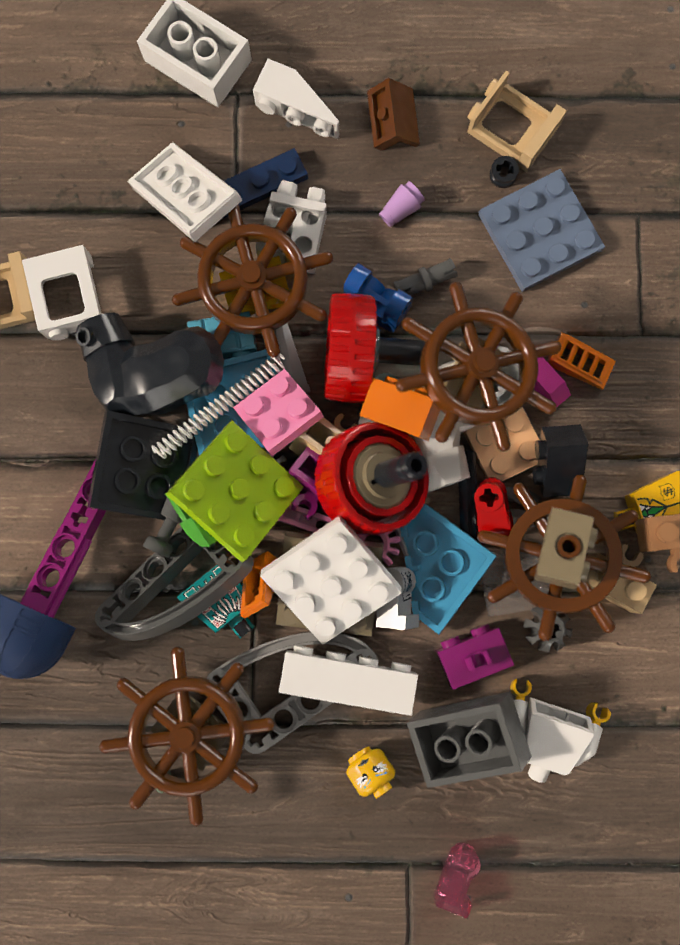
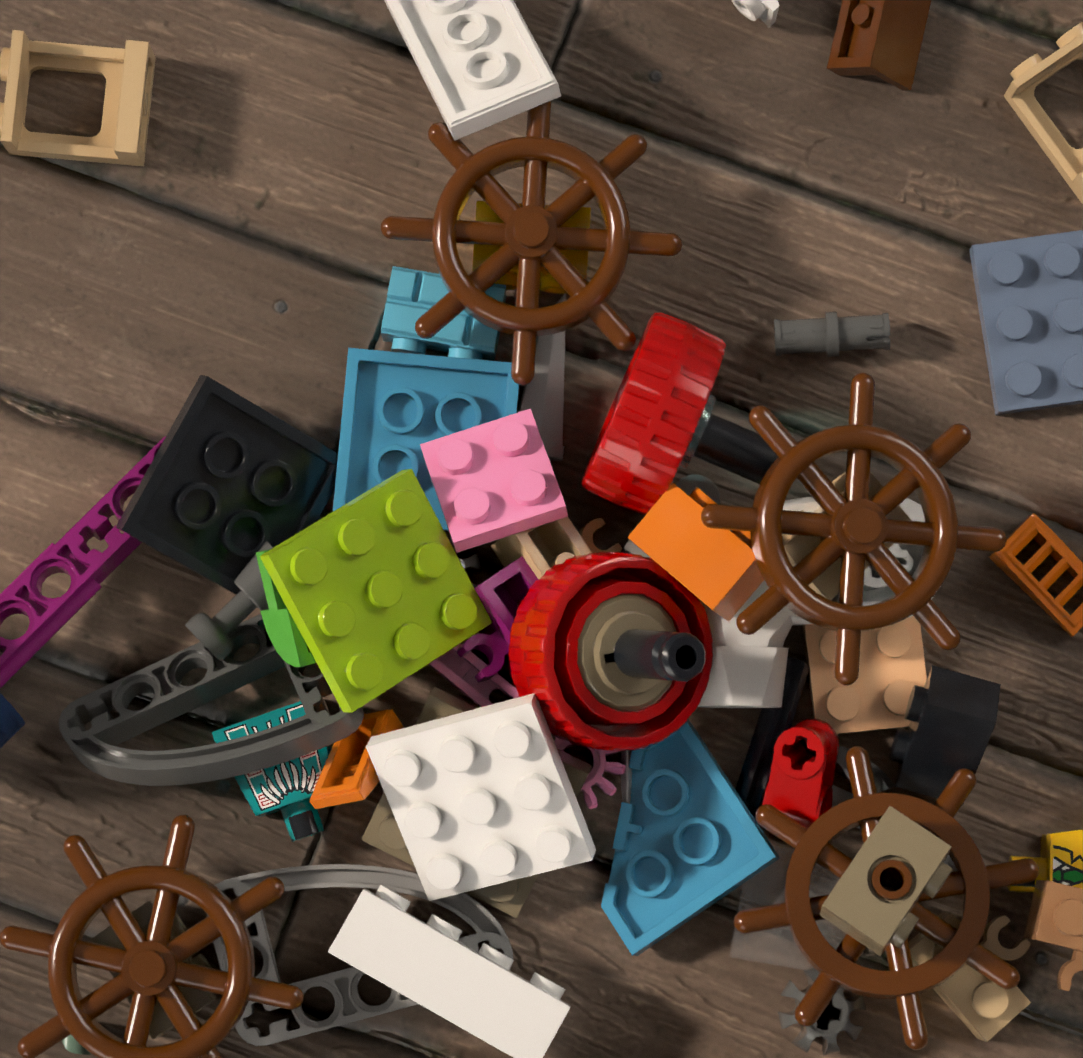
camera: 15 degrees right, 0 degrees up
(57, 265) = (205, 89): white window -> none
(151, 375) = (300, 341): black piece -> none
(223, 399) = (393, 436): white piece -> none
(266, 177) = (619, 57): dark blue plate -> none
(308, 224) = (669, 158): white hips -> none
(390, 304) = (751, 359): blue piece -> none
(397, 612) = (576, 889): light grey leg -> none
(402, 204) = (838, 187): lavender cone -> none
(473, 656) = (678, 1013): magenta brick -> none
(513, 170) = (1034, 176): black bush -> none
(550, 383) = (978, 593): dark pink piece -> none

